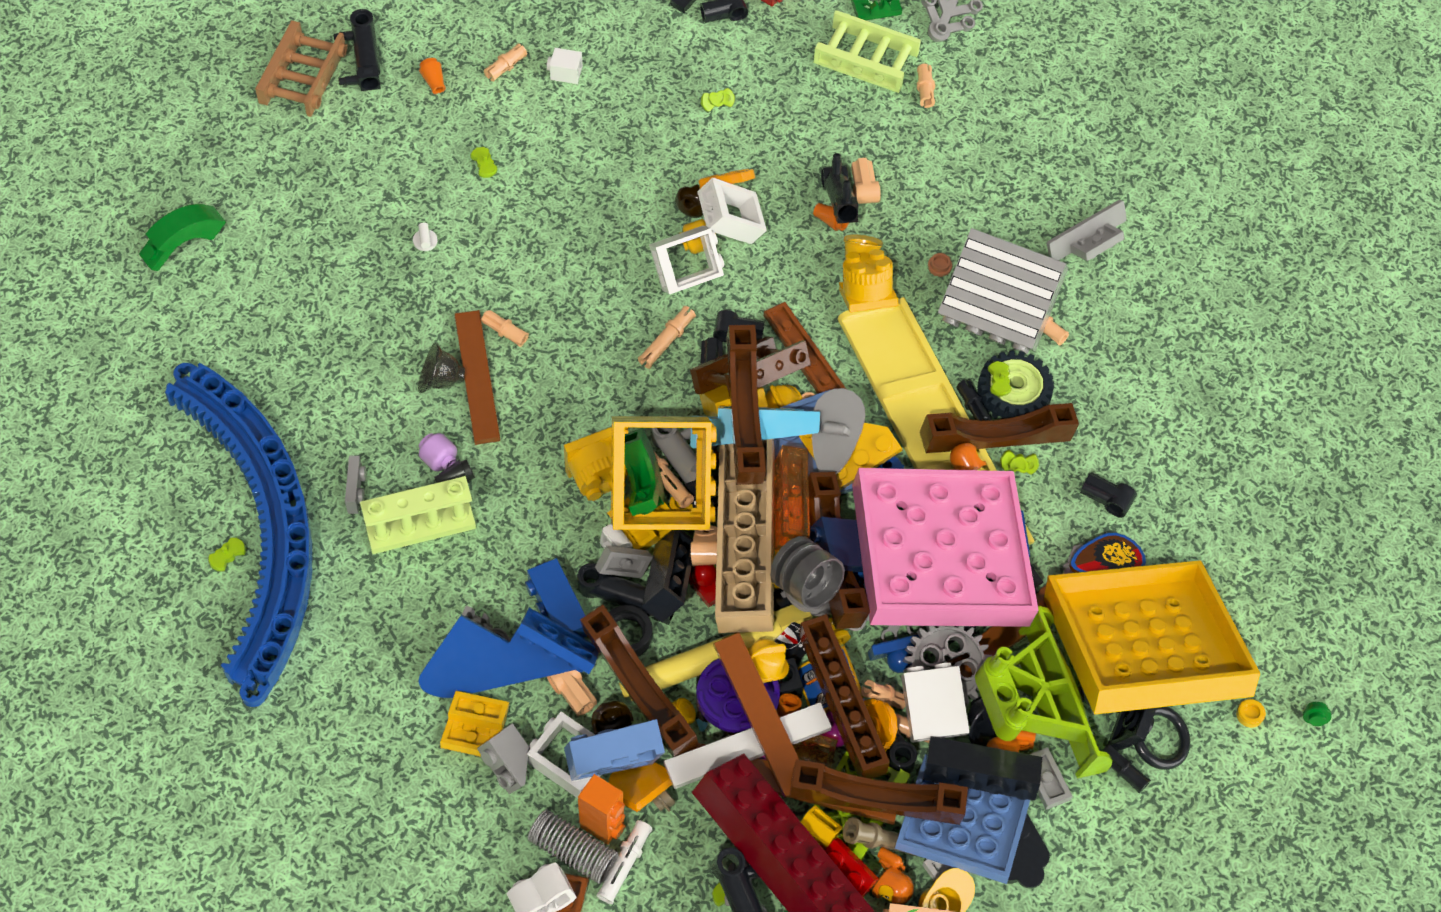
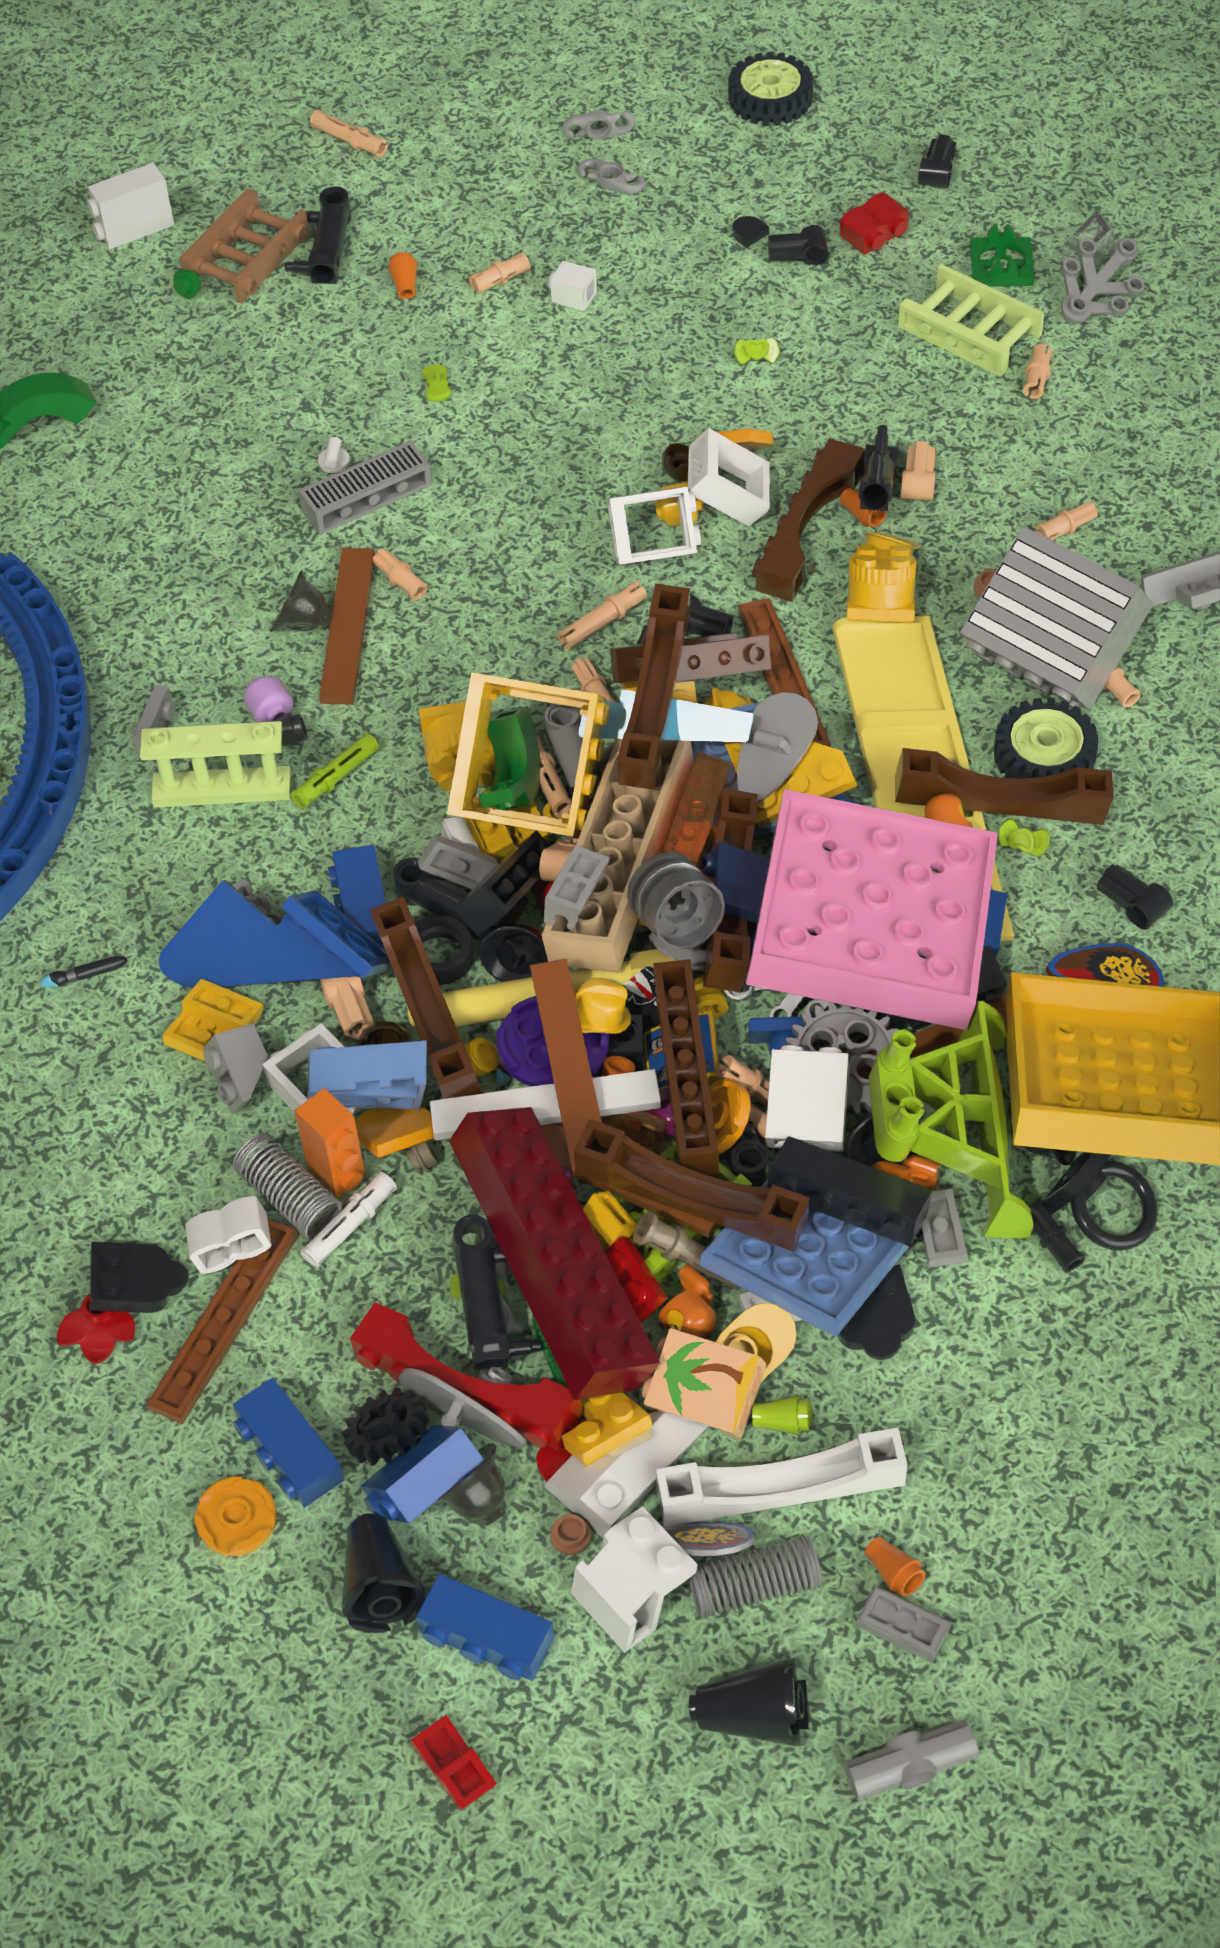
camera: 20 degrees right, 5 degrees down
(202, 48) = (130, 206): none -> white brick
(265, 107) = (187, 283): none -> green plate
(363, 700) = (84, 971): none -> black piece
(457, 260) = (365, 487): none -> light grey brick
(489, 522) = (325, 778): none -> lime pin
(677, 395) = (589, 678): none -> light nougat axle
(689, 627) = (511, 951): none -> black hat
(733, 576) = (574, 885): none -> light grey hinge
(790, 271) = (783, 564): none -> reddish brown arch
(973, 401) = (983, 752): black axle -> none
(979, 205) = (1067, 521): none -> light nougat axle
(1000, 379) = (1023, 728): lime piece -> none

